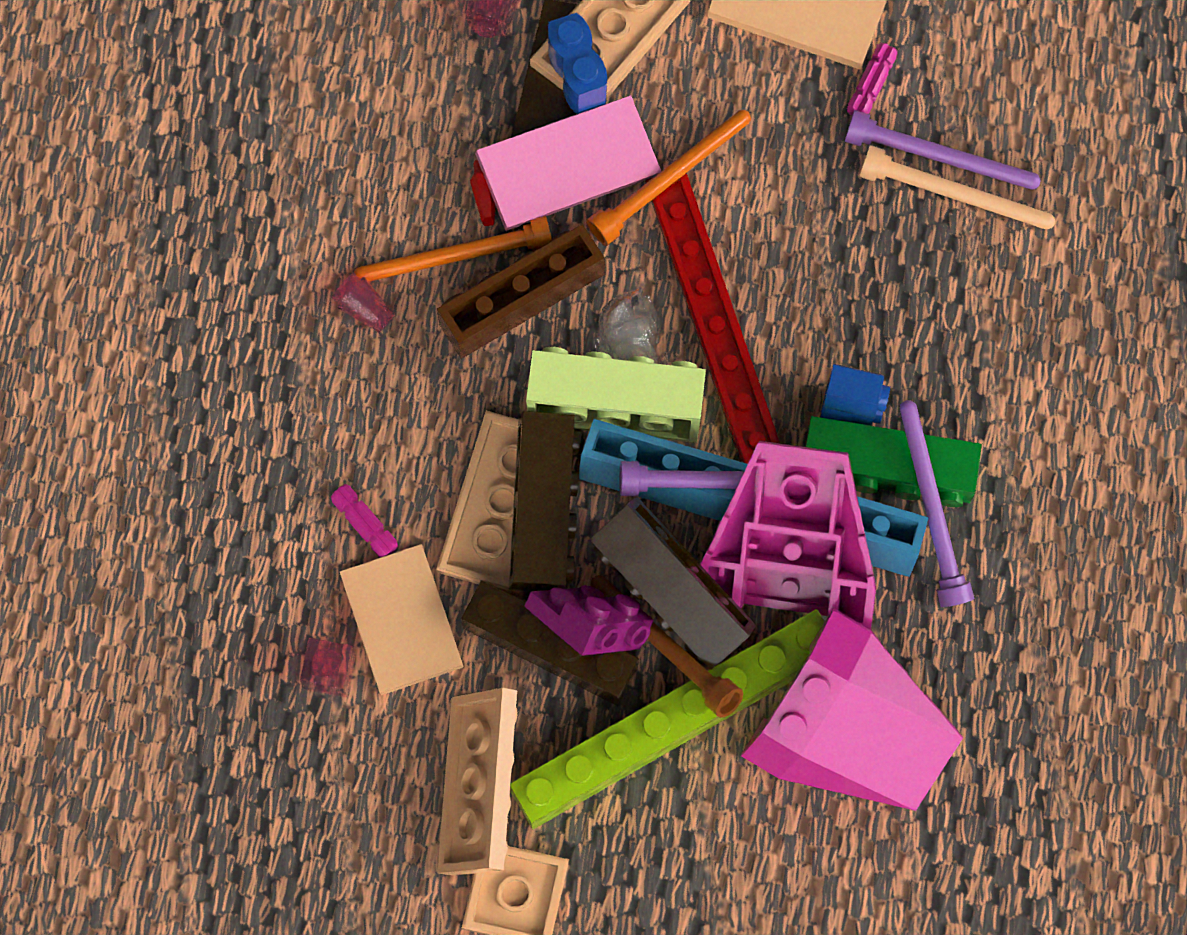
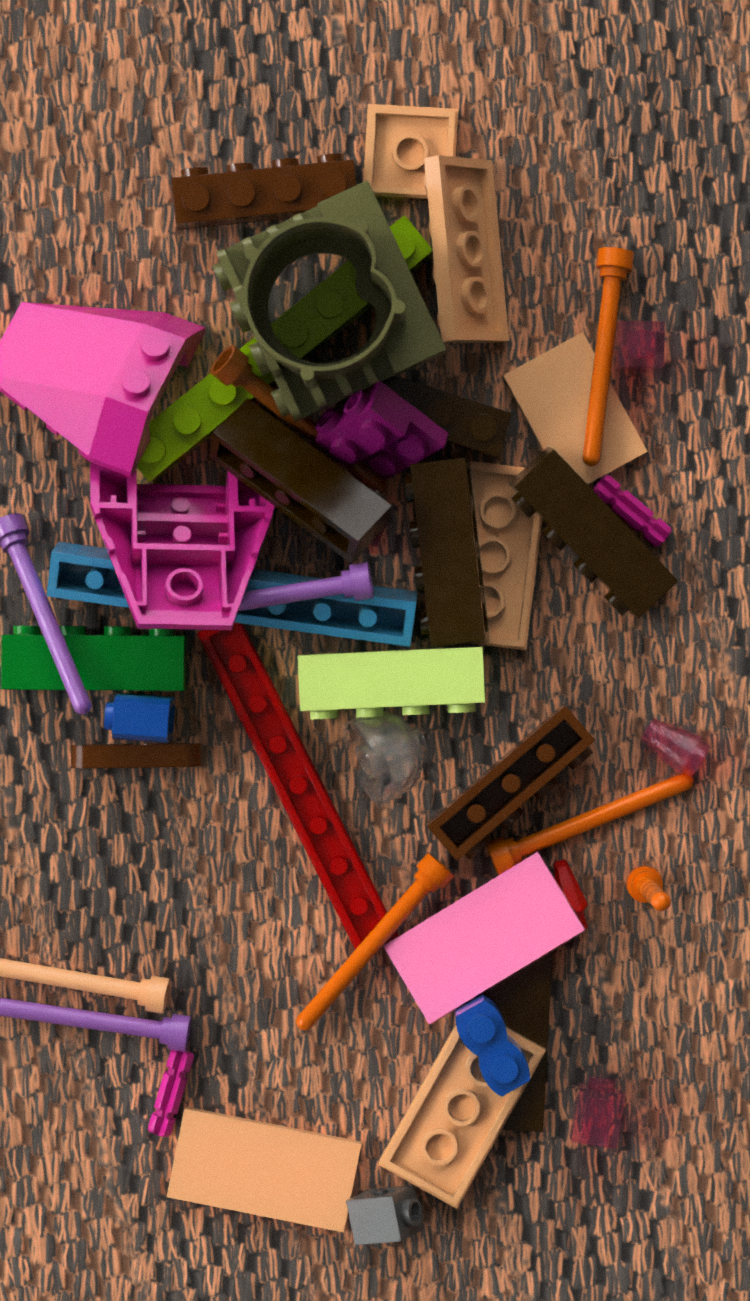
camera: 170 degrees right, 15 degrees up
(338, 746) = (613, 267): none -> orange piece
(405, 500) = (592, 532): none -> dark brown brick
(414, 189) = (646, 886): none -> orange piece
(551, 703) = (358, 231): none -> olive hose
(663, 871) = (257, 194): none -> reddish brown brick
(900, 375) = (136, 756): none -> reddish brown beam

